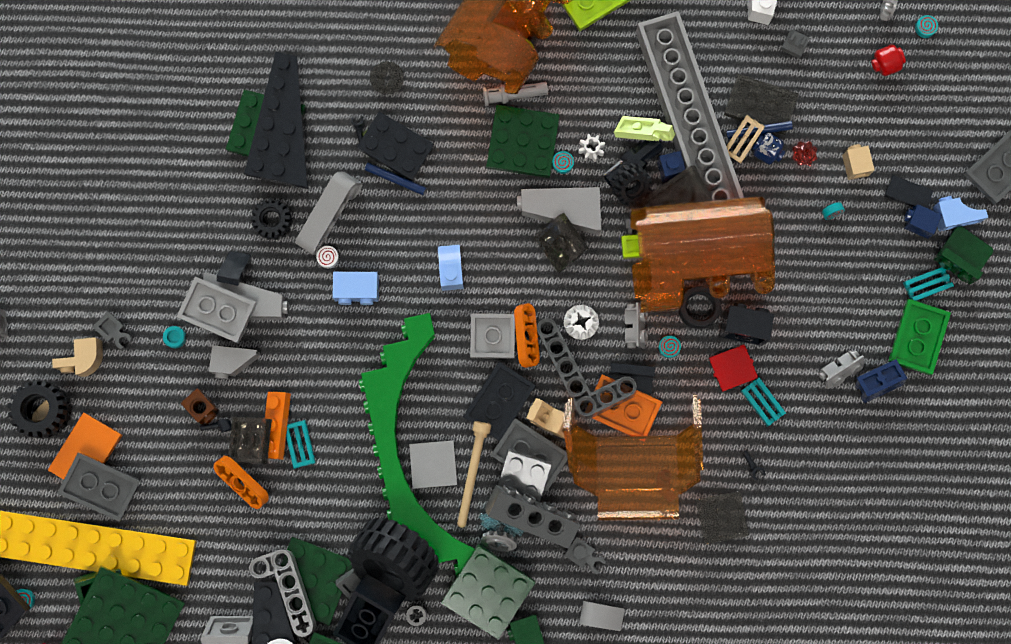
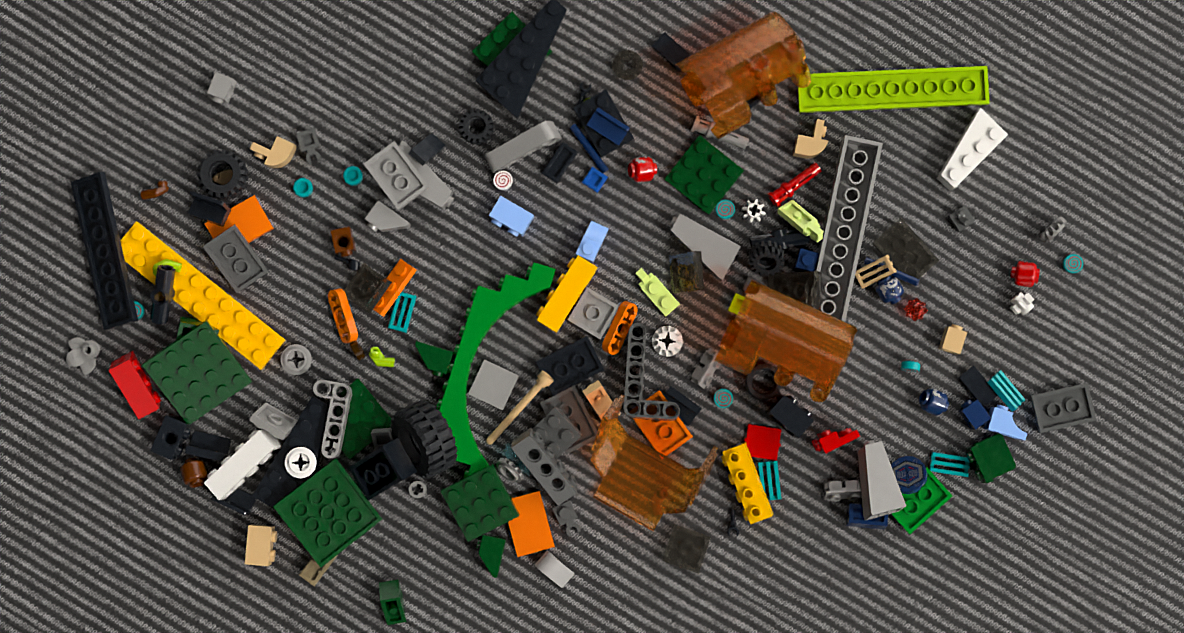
camera: 25 degrees right, 5 degrees up
(28, 534) = (176, 265): none -> lime arm
(43, 452) = (208, 209): none -> black panel
(45, 574) = (160, 303): none -> black piece
(130, 377) = (303, 187): none -> teal tile
(207, 552) = (290, 353): none -> light grey gear
(276, 508) = (358, 351): none -> dark brown tile
(302, 505) = (379, 359): none -> lime arm
(360, 471) = (435, 358): none -> dark green slope
(374, 208) = (559, 162): none -> black tile
(401, 144) = (608, 126): none -> dark blue panel
(418, 205) = (594, 180): none -> blue tile
(421, 42) = (670, 50): none -> black tile
(455, 331) = (567, 293): none -> yellow brick
(459, 168) = (642, 169): none -> red head
(543, 280) = (657, 292): none -> yellowish green hinge
(555, 588) = (531, 528): none -> orange tile
(611, 54) = (810, 147): none -> tan brick
(612, 108) = (787, 189): none -> red pin
(744, 416) = (748, 484): none -> yellow brick
(800, 326) = (830, 440): none -> red plate
(872, 340) = (878, 483): none -> light grey slope
(876, 231) = (933, 401): none -> dark blue head
(895, 317) = (910, 474): none -> dark blue tile
(902, 89) = (1022, 303): none -> white gear
(938, 181) = (1006, 390): none -> teal tile

